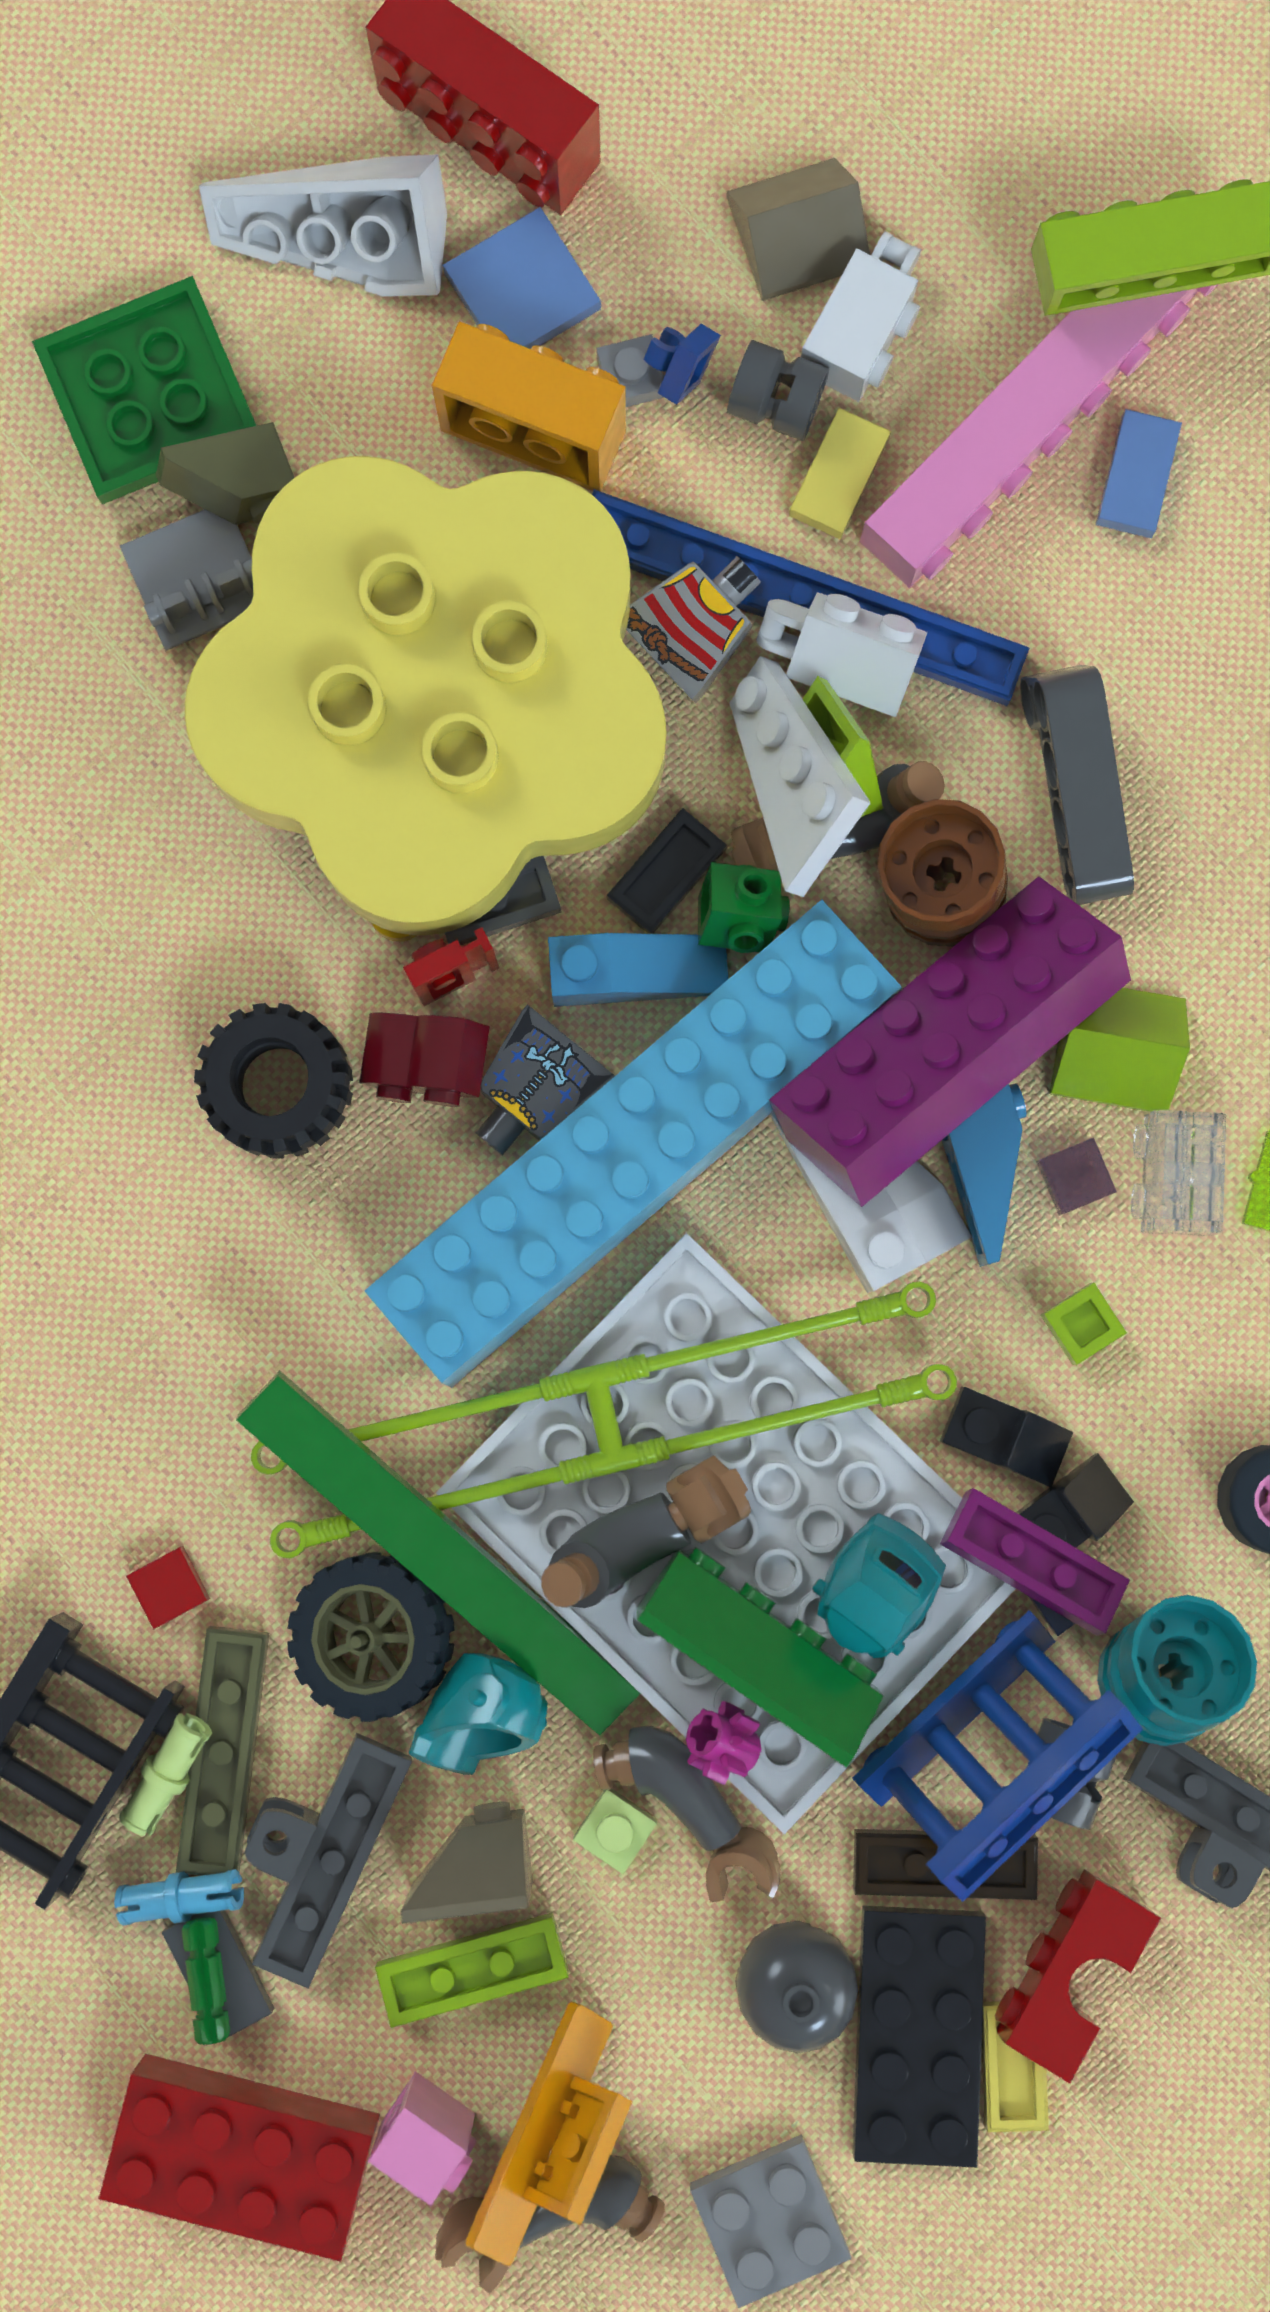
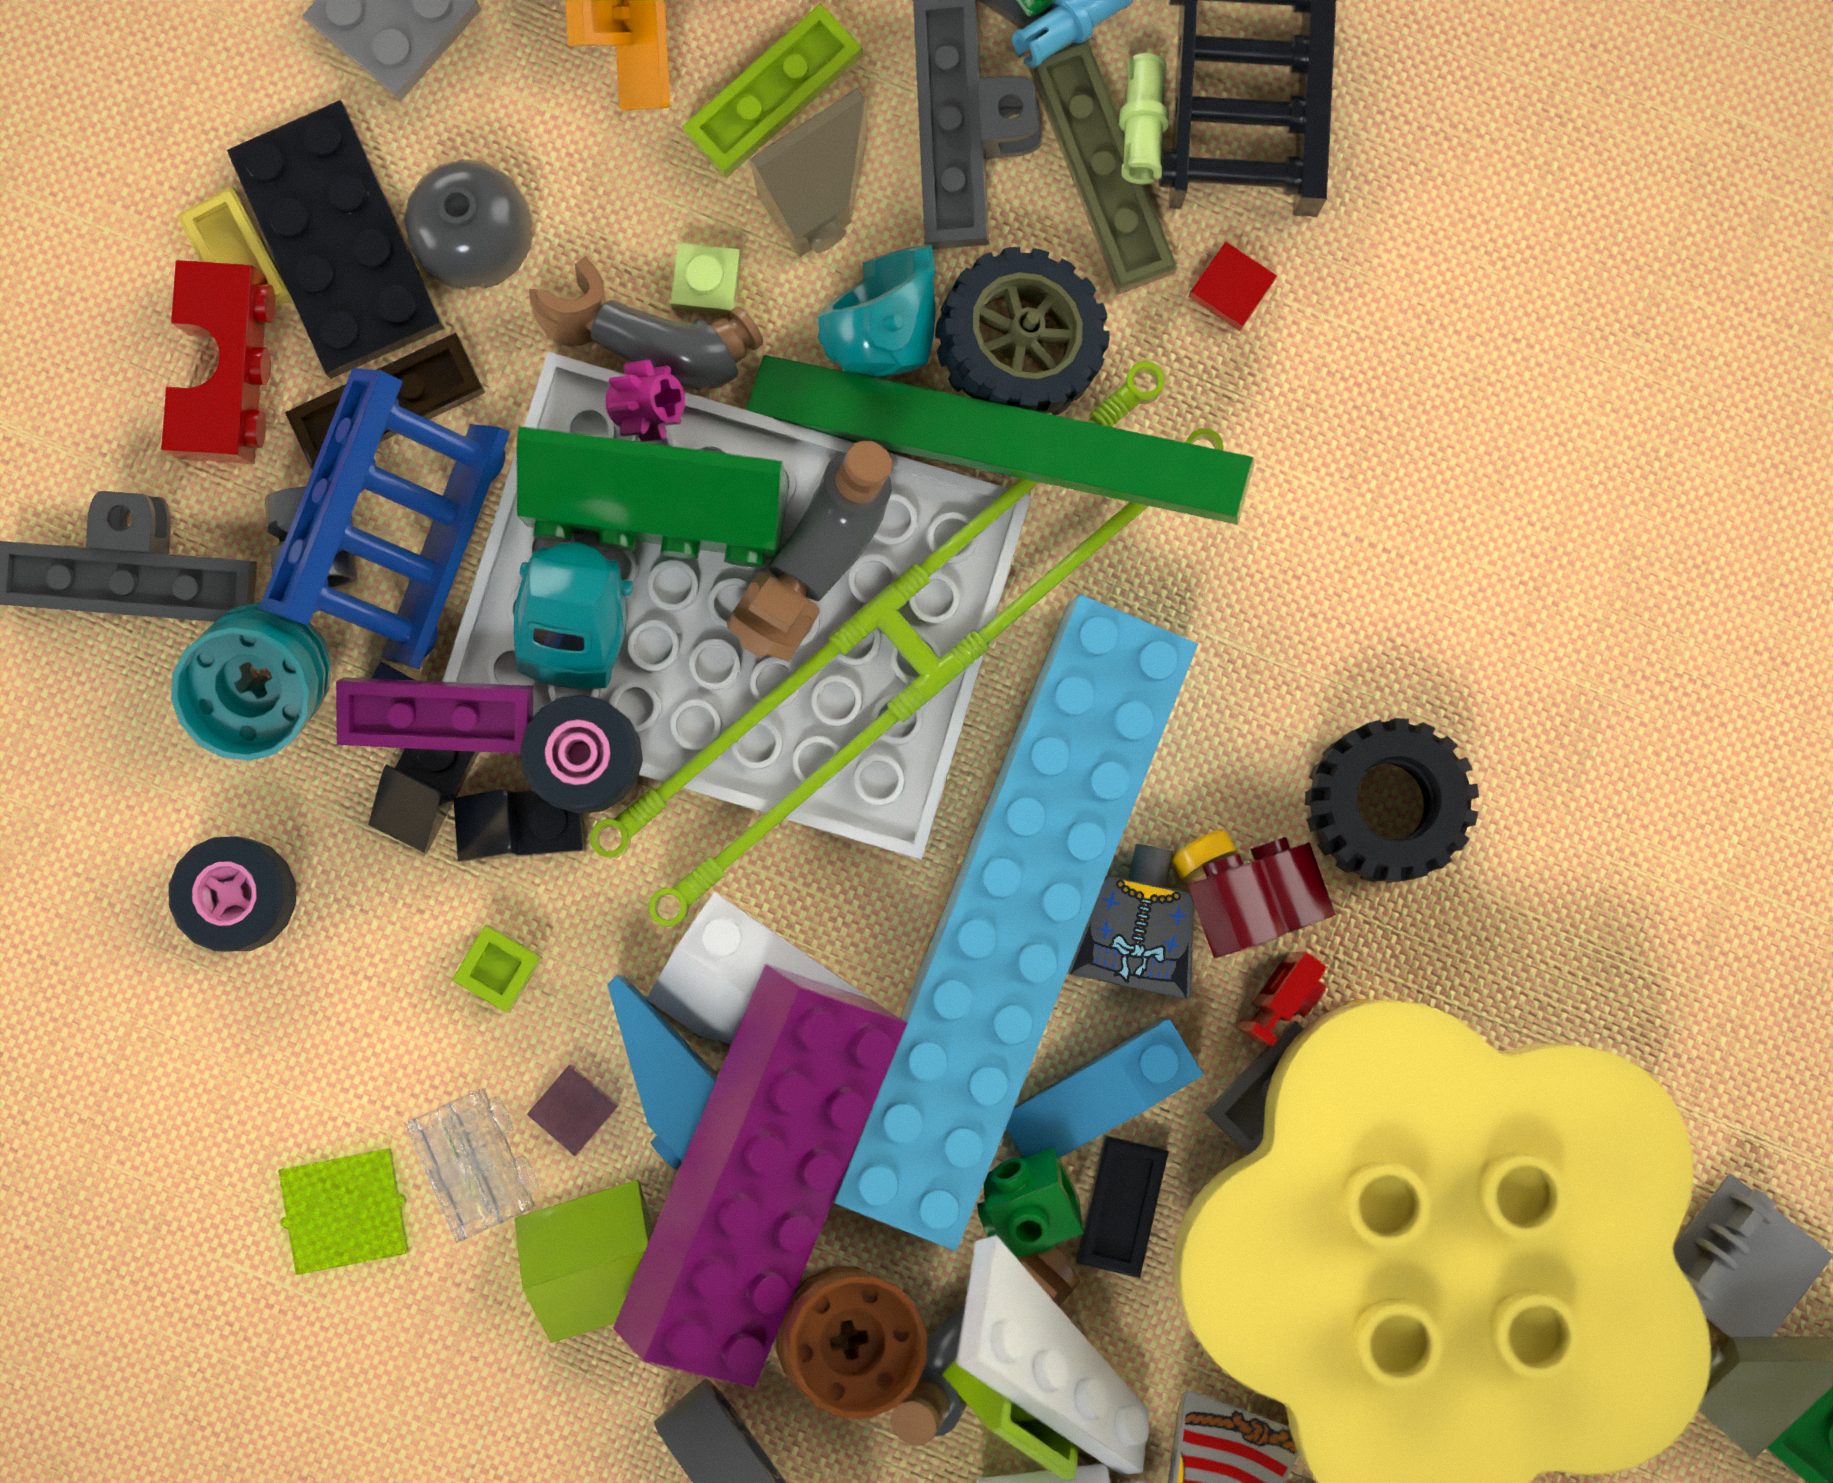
camera: 155 degrees right, 0 degrees up
(451, 1119) = (1202, 851): none -> yellow tile
(906, 1464) = (597, 771): none -> black wheel

